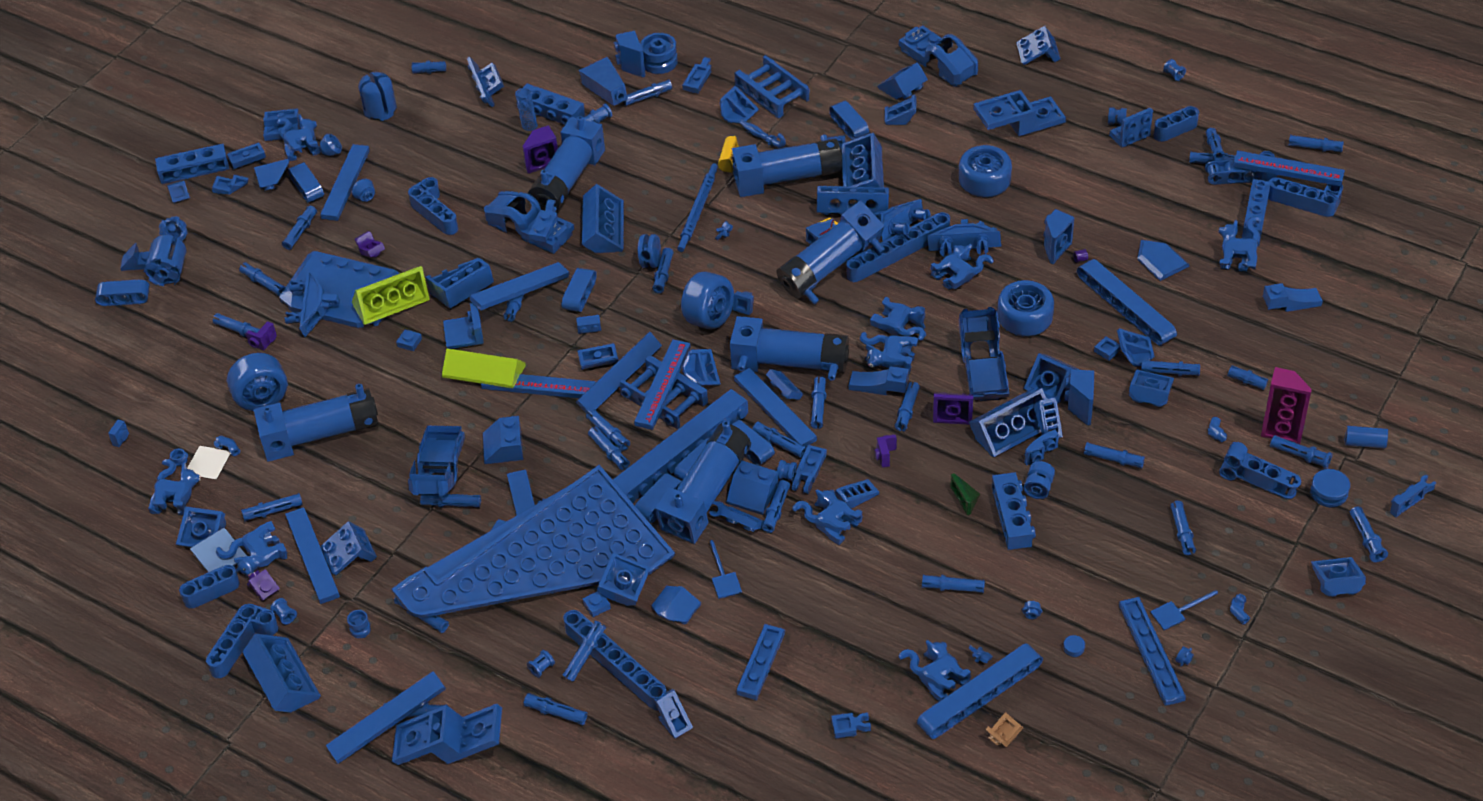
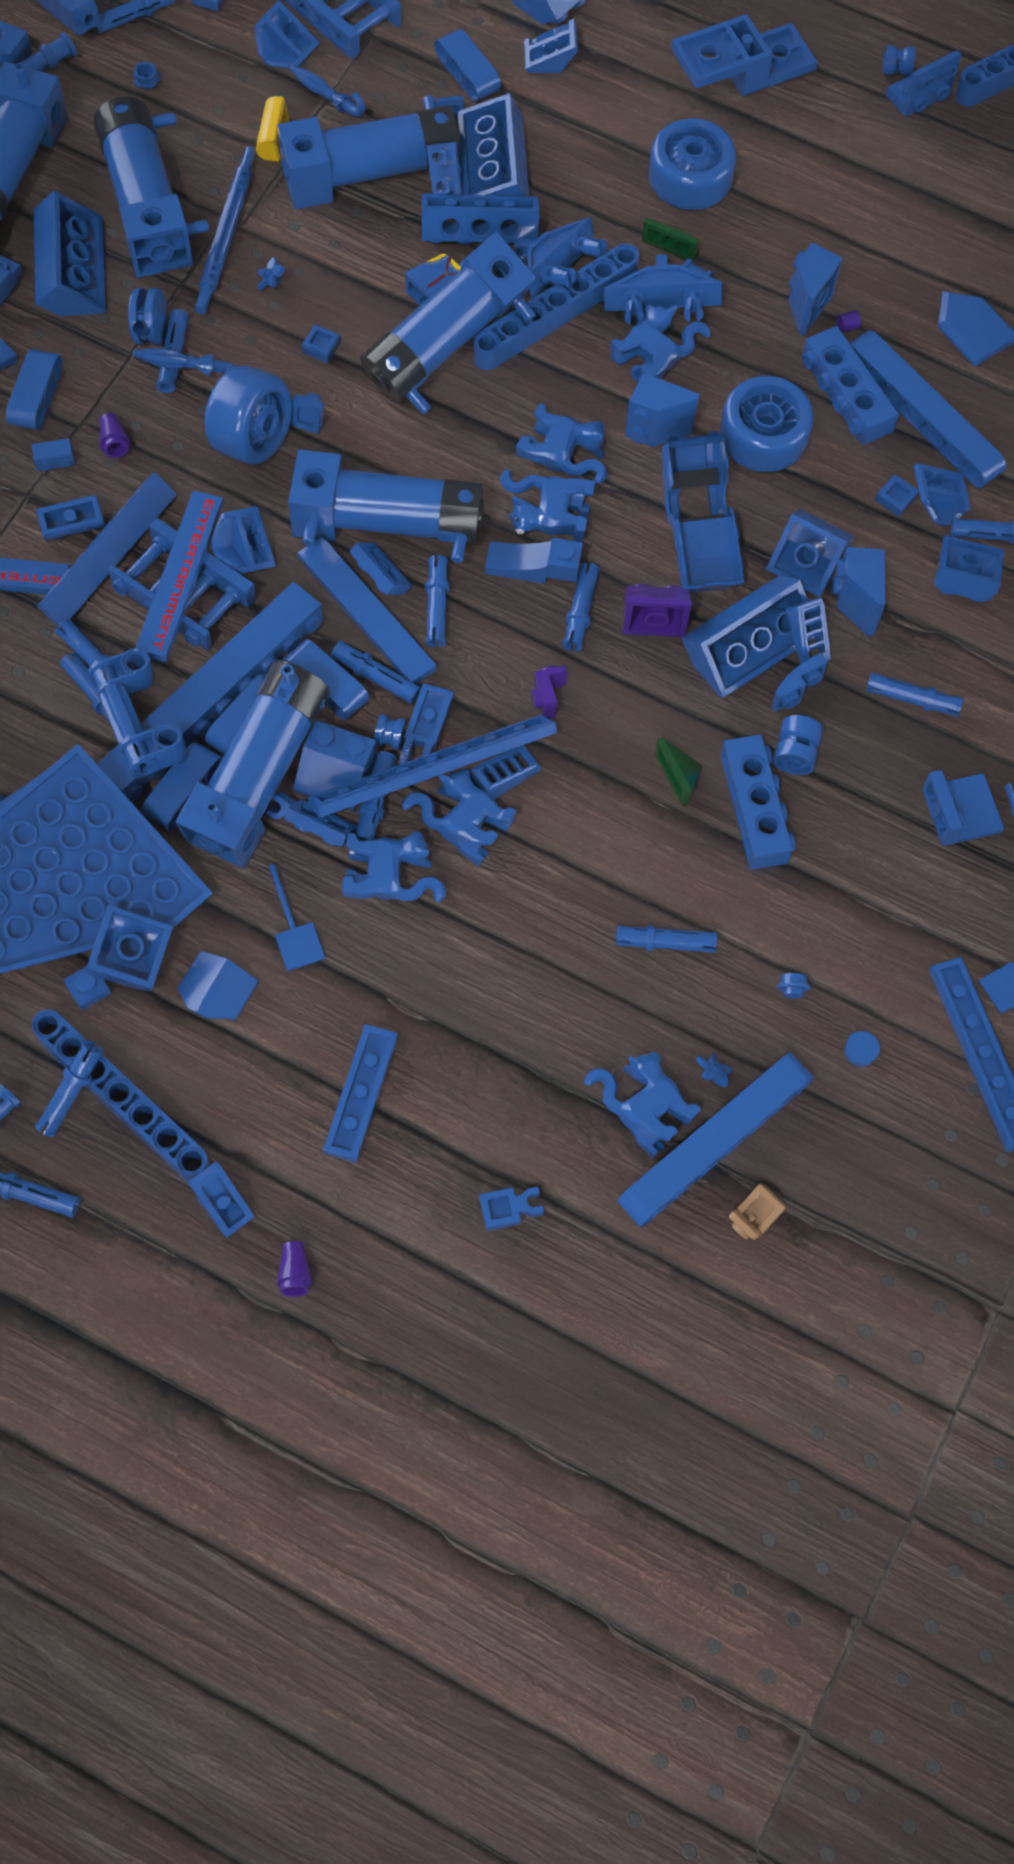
camera: 10 degrees left, 20 degrees up
(625, 316) = (113, 437): none -> dark purple cone
(644, 471) = (114, 691): none -> blue piece
(653, 126) = (145, 75): none -> blue plate
(653, 197) = (147, 206): none -> blue piece
(665, 273) = (172, 359): none -> blue piece
(716, 755) = (294, 1272): none -> dark purple cone
(753, 267) = (321, 343): none -> blue tile
(780, 540) = (384, 868): none -> blue animal
(811, 486) = (431, 765): none -> blue tile
(832, 171) = (445, 168): none -> blue hips
(958, 296) = (660, 411): none -> blue slope
(969, 211) = (670, 239): none -> dark green slope
(1079, 289) = (849, 386): none -> blue brick
(1141, 516) = (961, 808): none -> blue bracket

